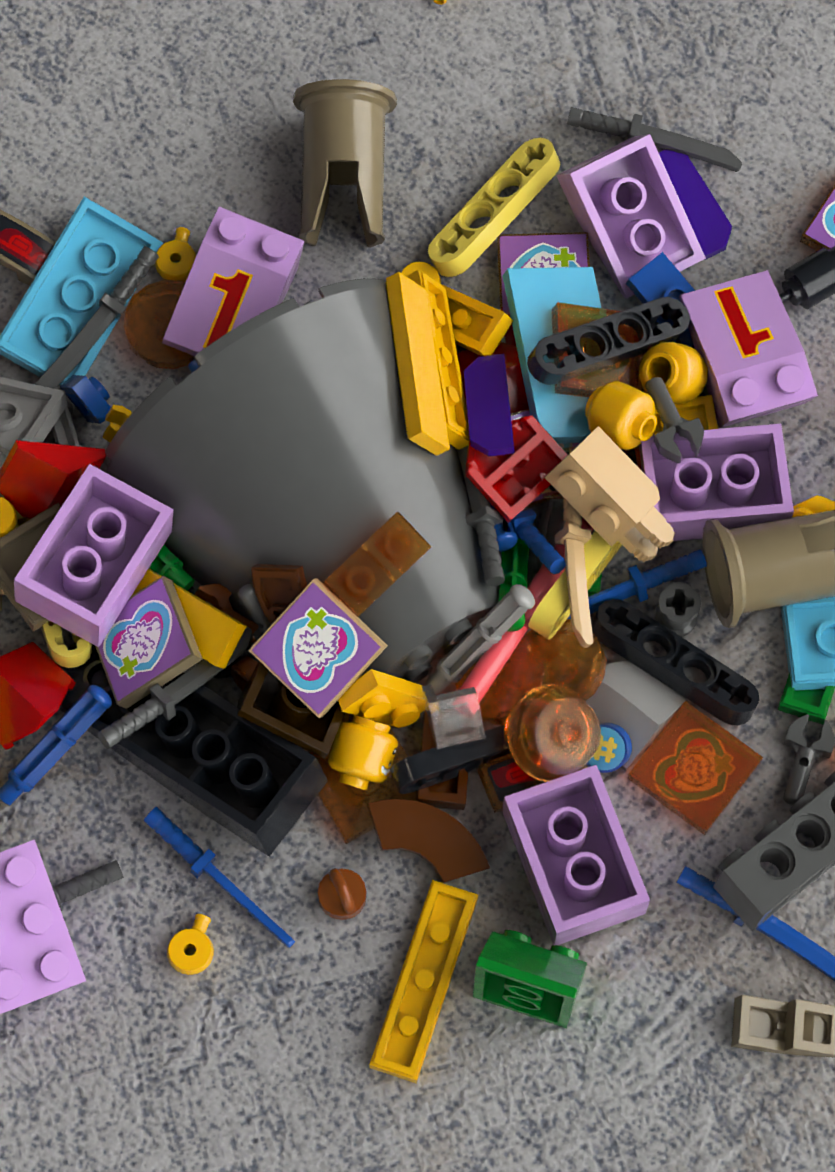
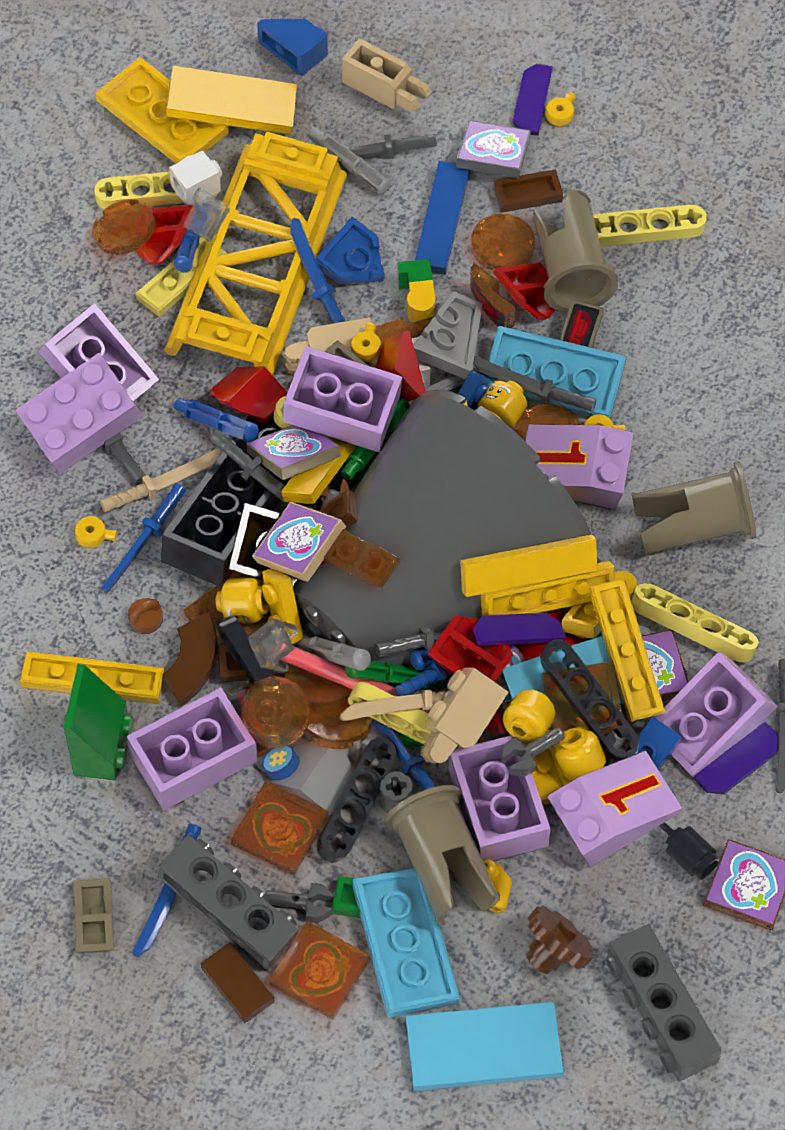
camera: 80 degrees right, 10 degrees down
(120, 366) = (504, 401): none -> yellow head
(136, 856) = (151, 486): none -> tan sword
(540, 282) = (626, 650): none -> yellow tile

